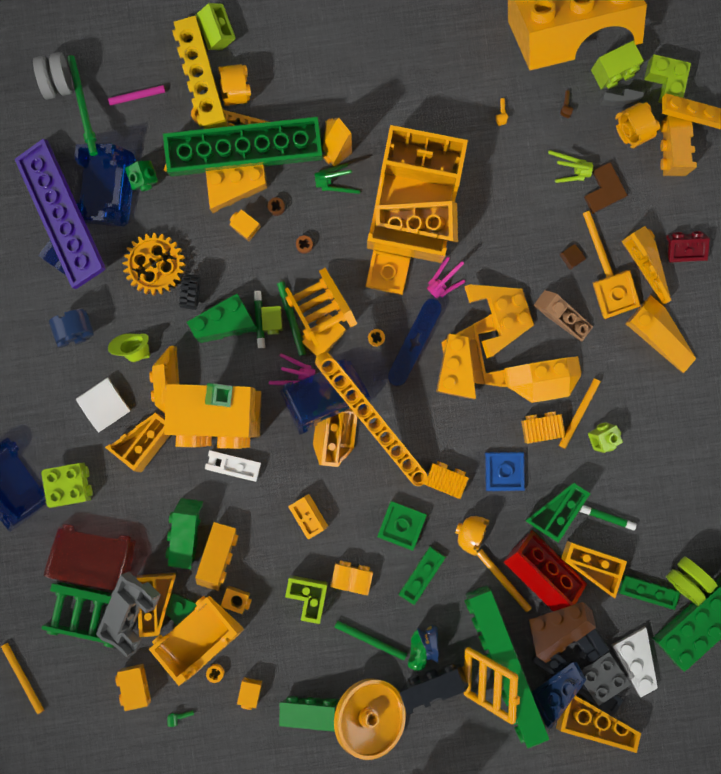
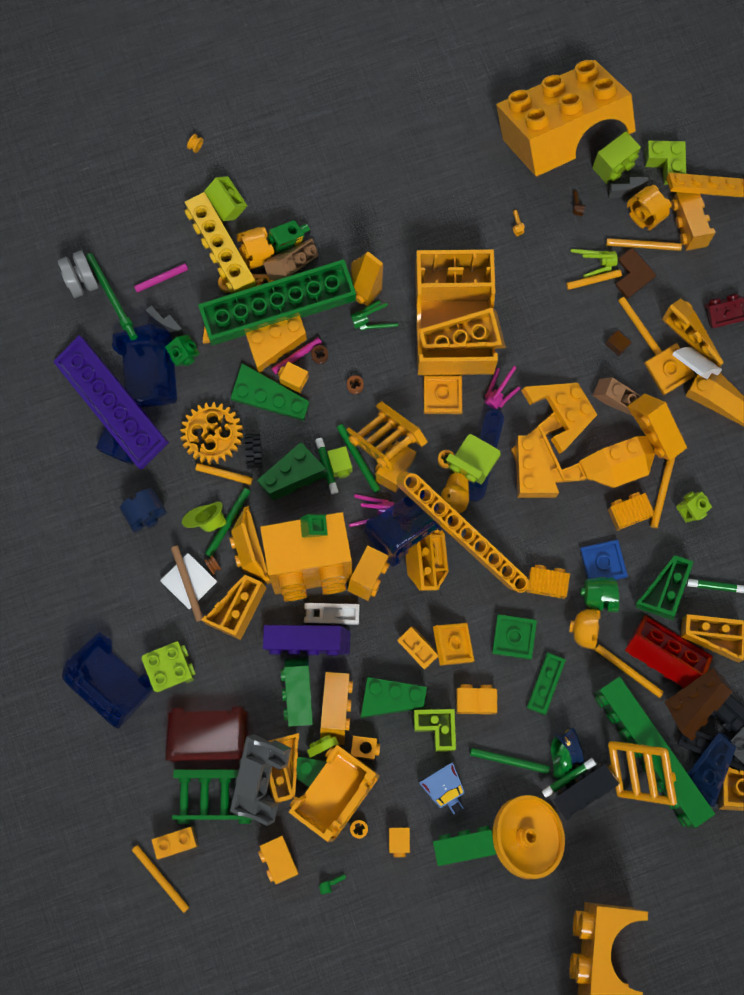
camera: 15 degrees left, 10 degrees down
(41, 650) = (175, 843): none -> light orange brick
(100, 408) = (187, 583): none -> medium nougat bar
(128, 394) = (212, 564): none -> dark orange bush
(133, 143) = (167, 323): none -> dark grey slope
(153, 354) = (229, 520): none -> green bar
(158, 306) = (224, 474): none -> light orange bar
(195, 591) = (322, 745): none -> lime plate
(202, 487) = (306, 639): none -> dark purple wedge
(213, 234) = (263, 393): none -> green wing
(254, 202) = (298, 354): none -> dark pink bar
(266, 105) = (290, 260): none -> medium nougat slope
(267, 81) = (287, 236): none -> green torso
(271, 559) = (391, 697): none -> green wedge
(274, 435) = (366, 576): none -> light orange brick
(302, 653) = (444, 788): none -> medium blue torso
(341, 520) = (453, 644): none -> light orange tile
(379, 373) = (458, 489): none -> light orange cap
(402, 346) = (474, 459): none -> lime bracket
(421, 672) = (569, 777): none -> green bar
(494, 502) = (601, 594): none -> green helmet
(563, 186) = (593, 279): none -> light orange bar
(590, 351) = (658, 426): none -> light orange wedge
(622, 160) = (643, 244): none -> light orange bar
(644, 295) = (697, 362): none -> white slope

